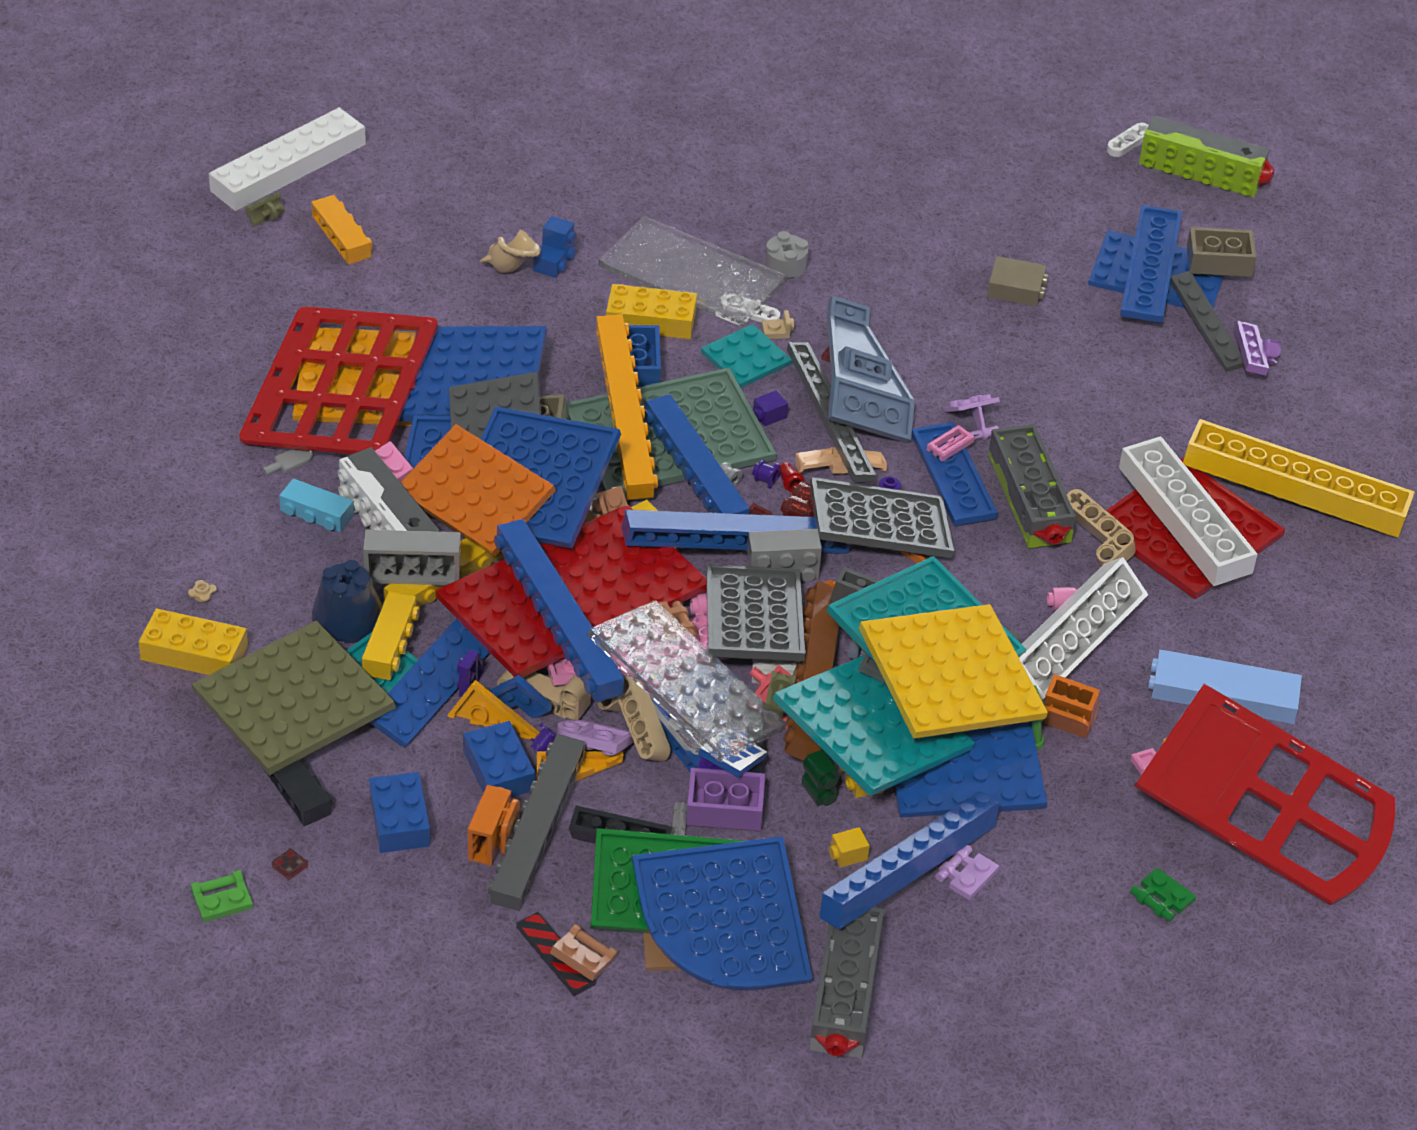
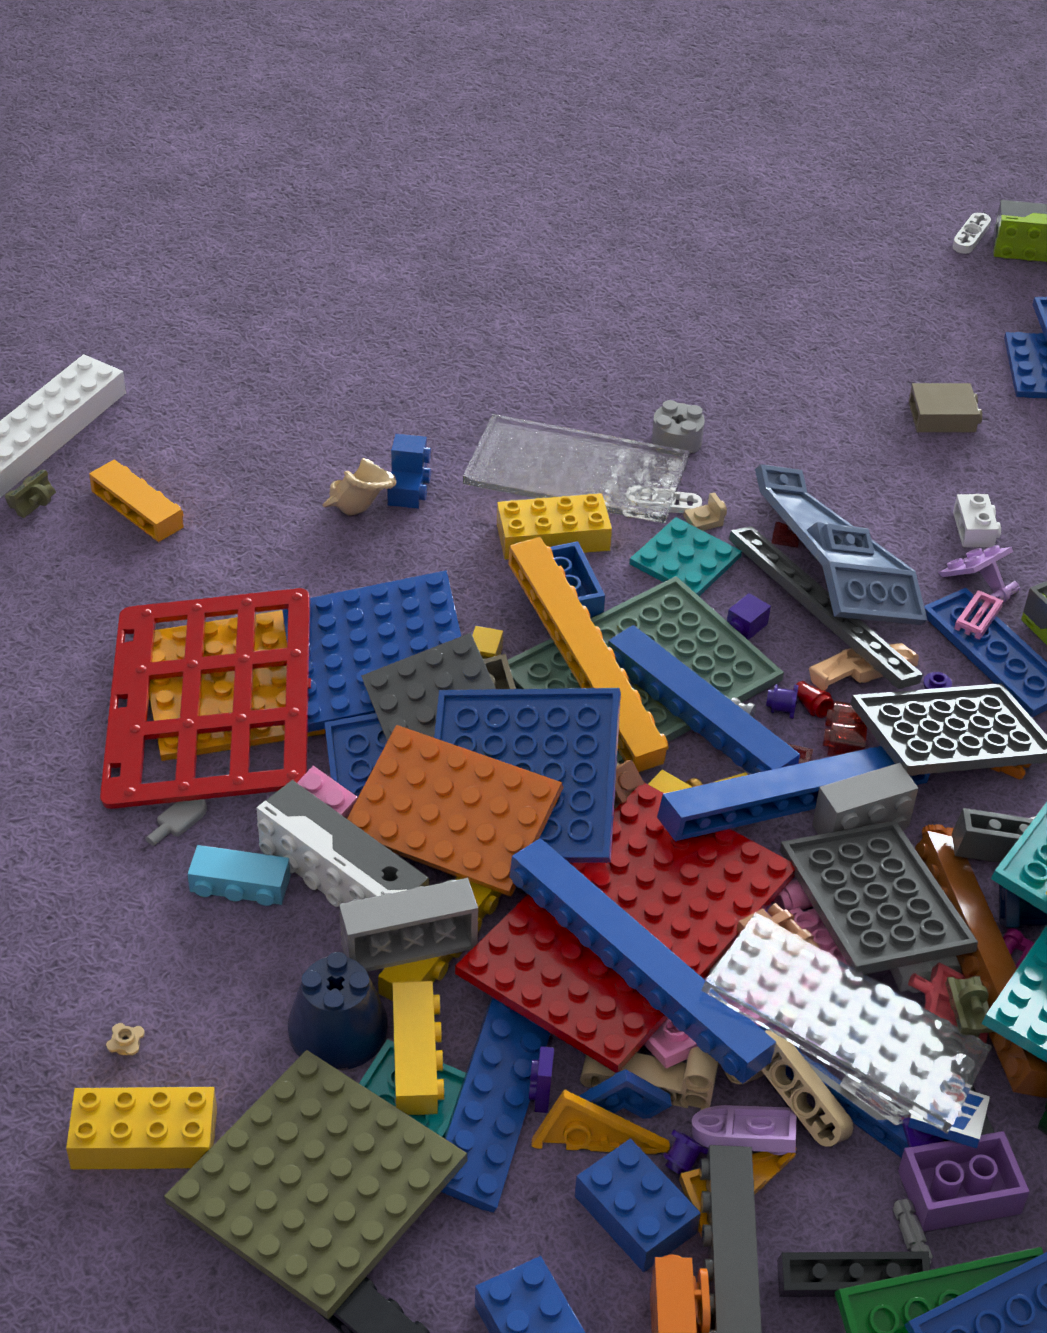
camera: 15 degrees left, 0 degrees up
(558, 385) = (488, 641): none -> yellow brick
(992, 374) = (976, 520): none -> white brick

